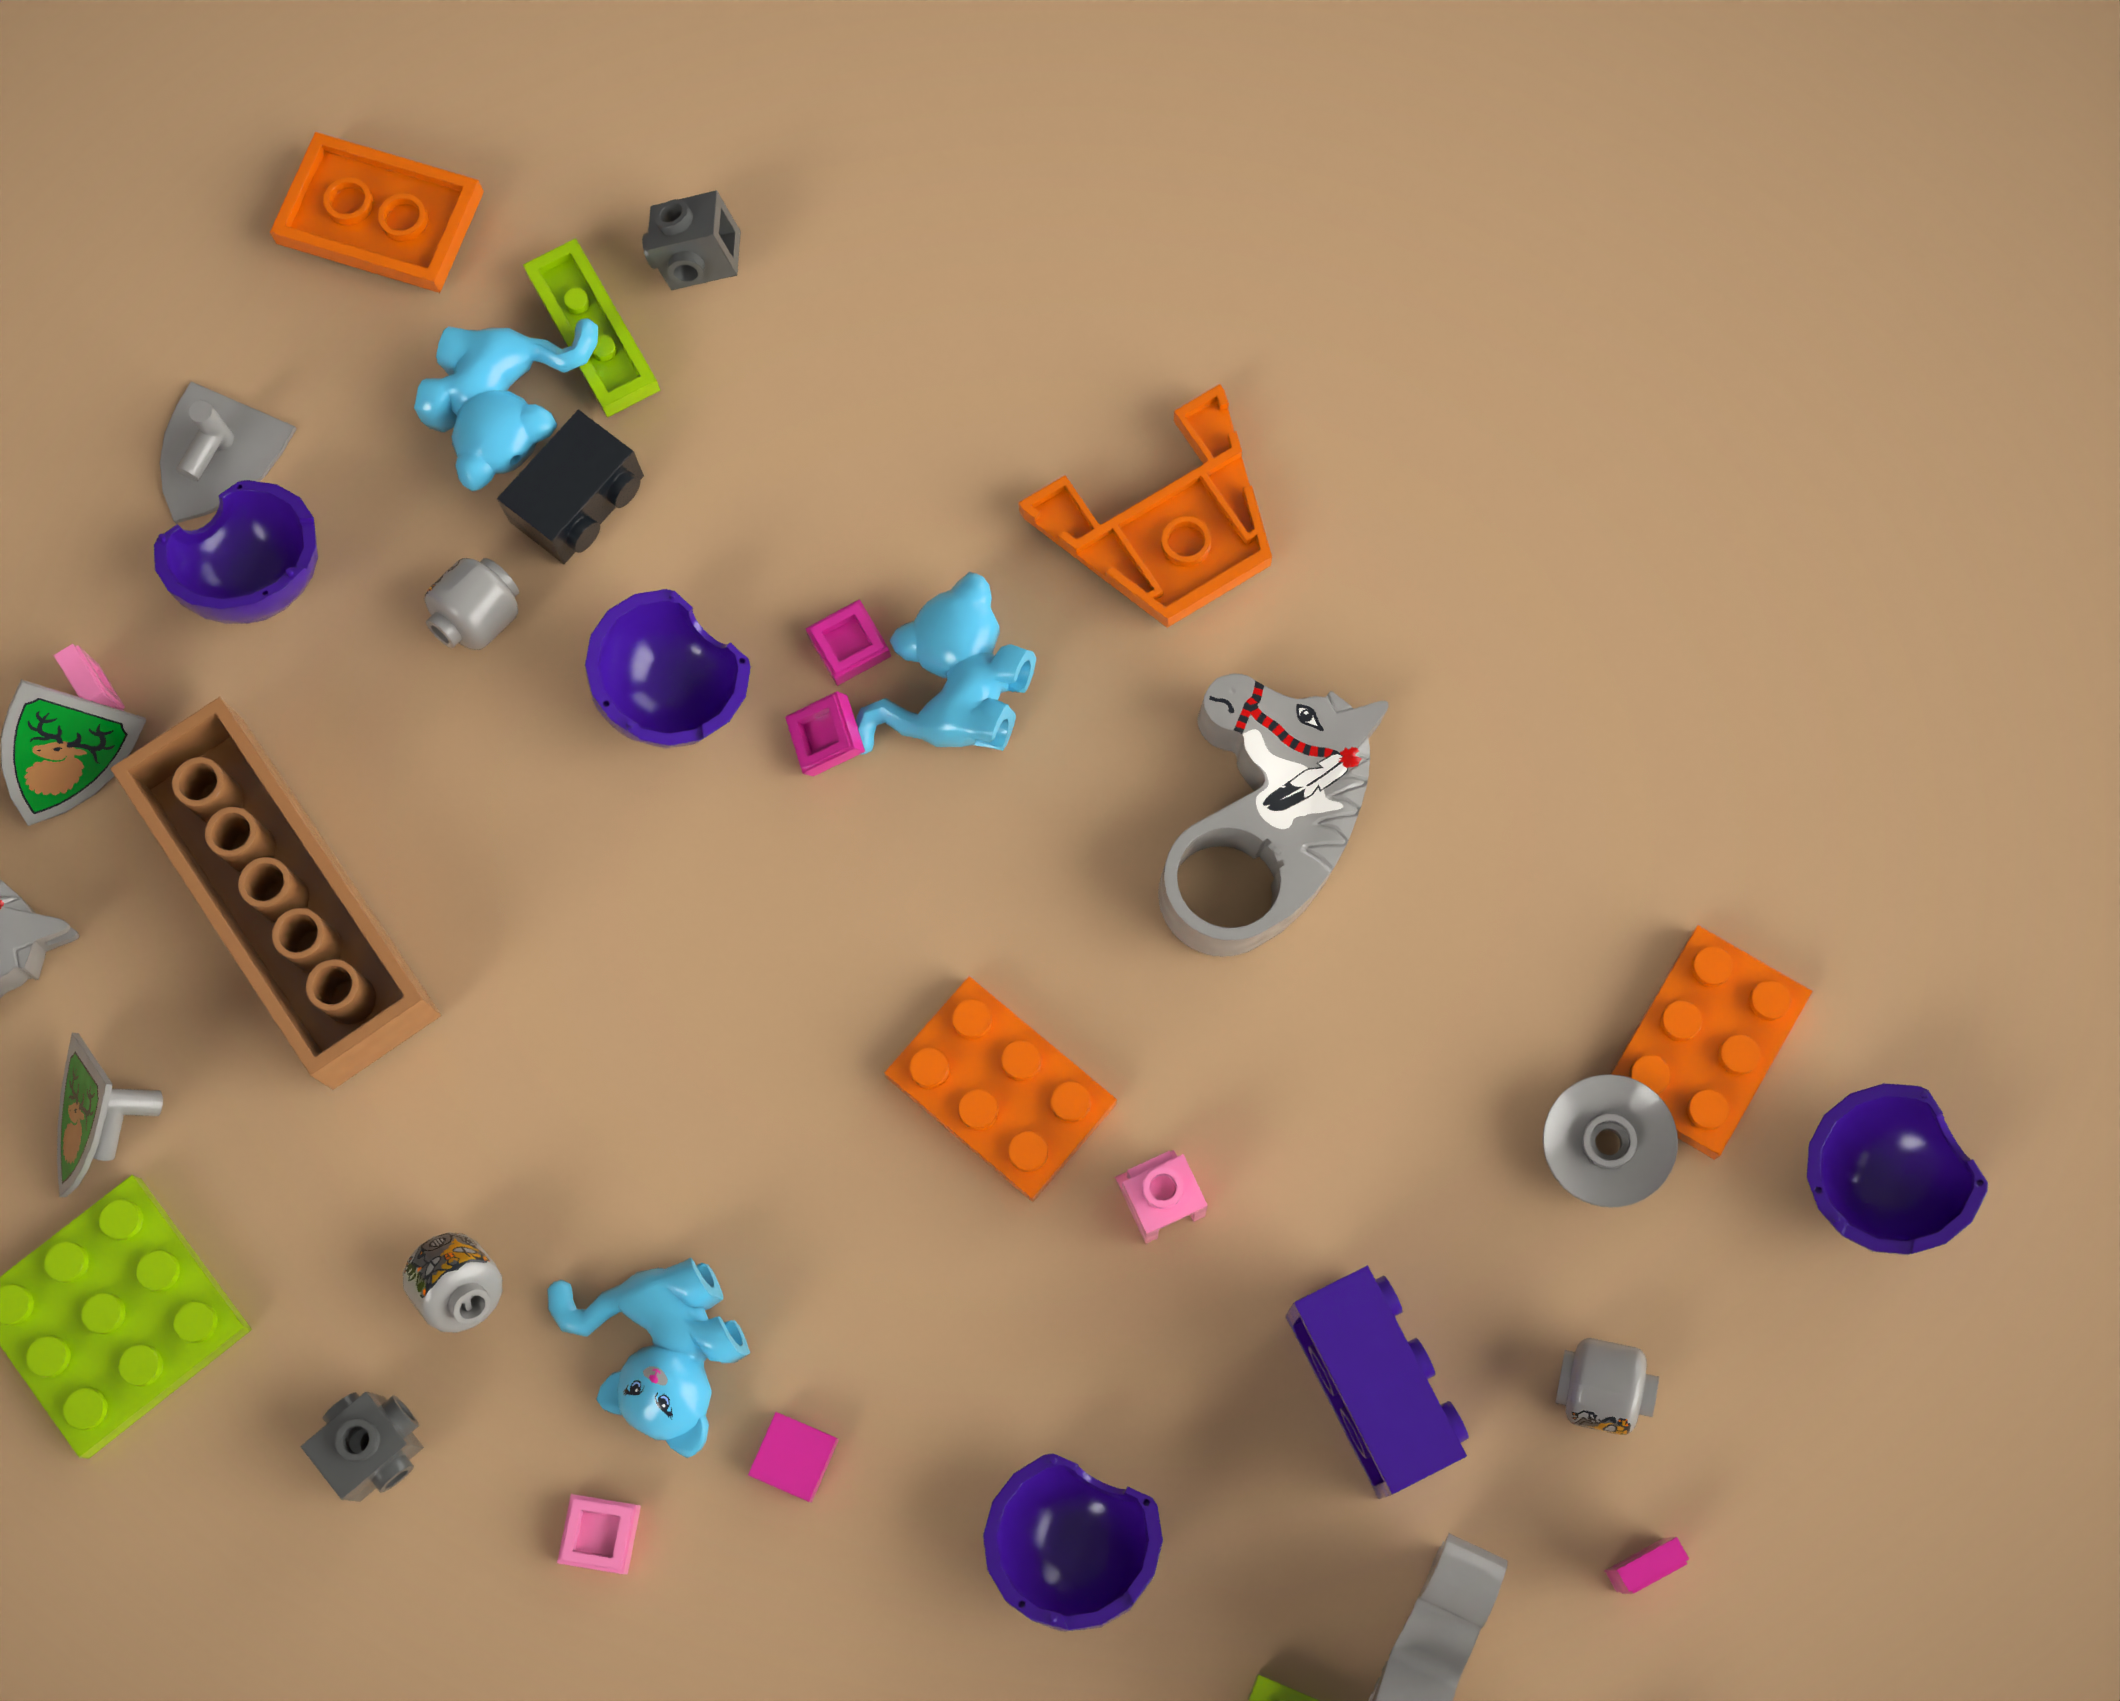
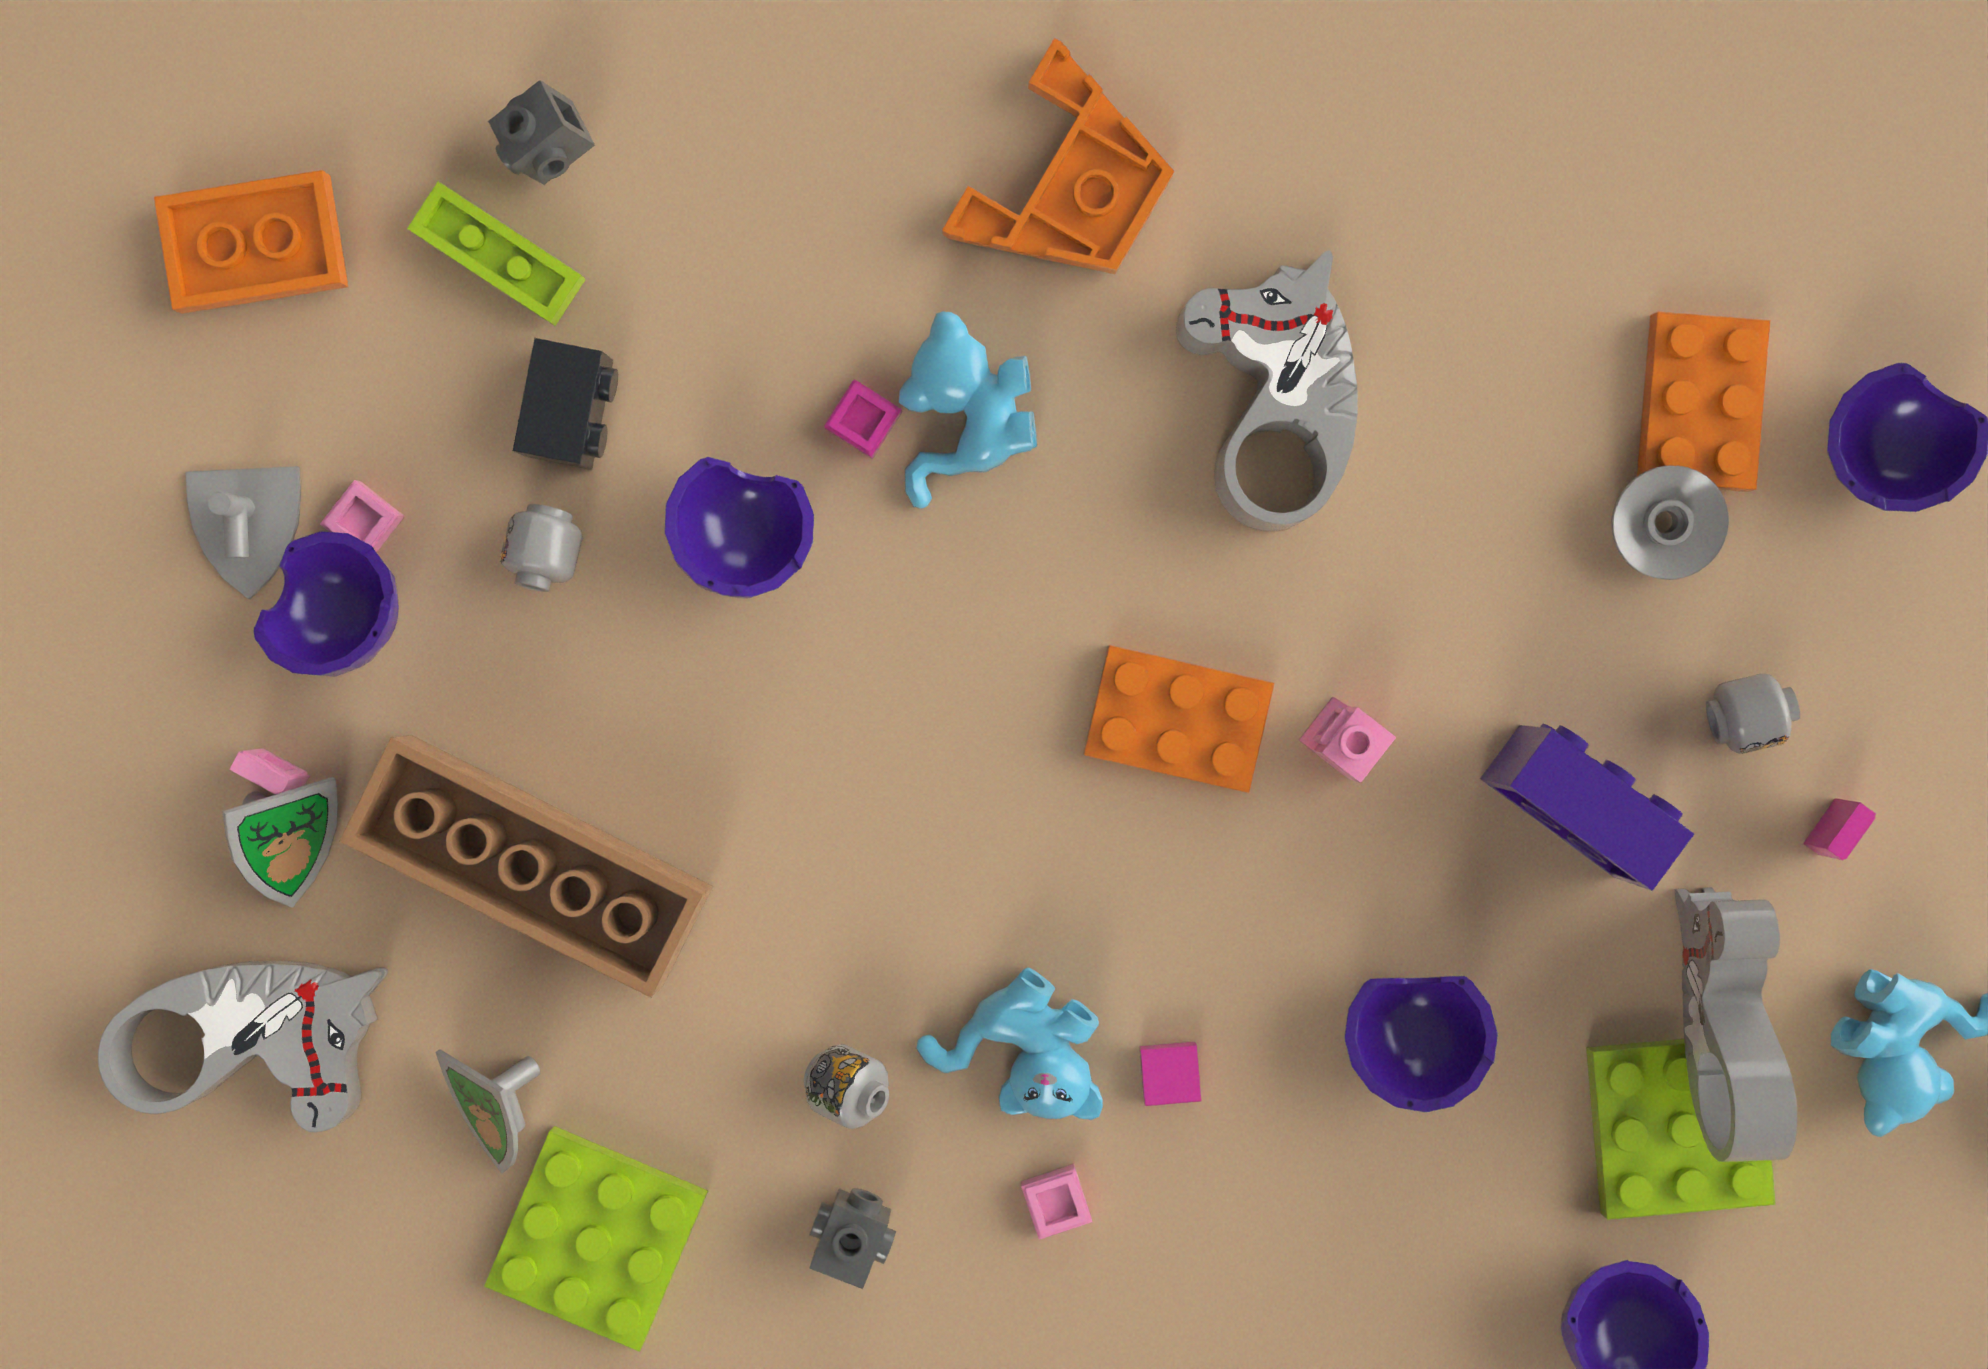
camera: 30 degrees left, 15 degrees up
(328, 498) = (363, 516): none -> bright pink tile
(492, 425) = (470, 385): medium azure animal -> none
(825, 734) = (888, 507): dark pink tile -> none

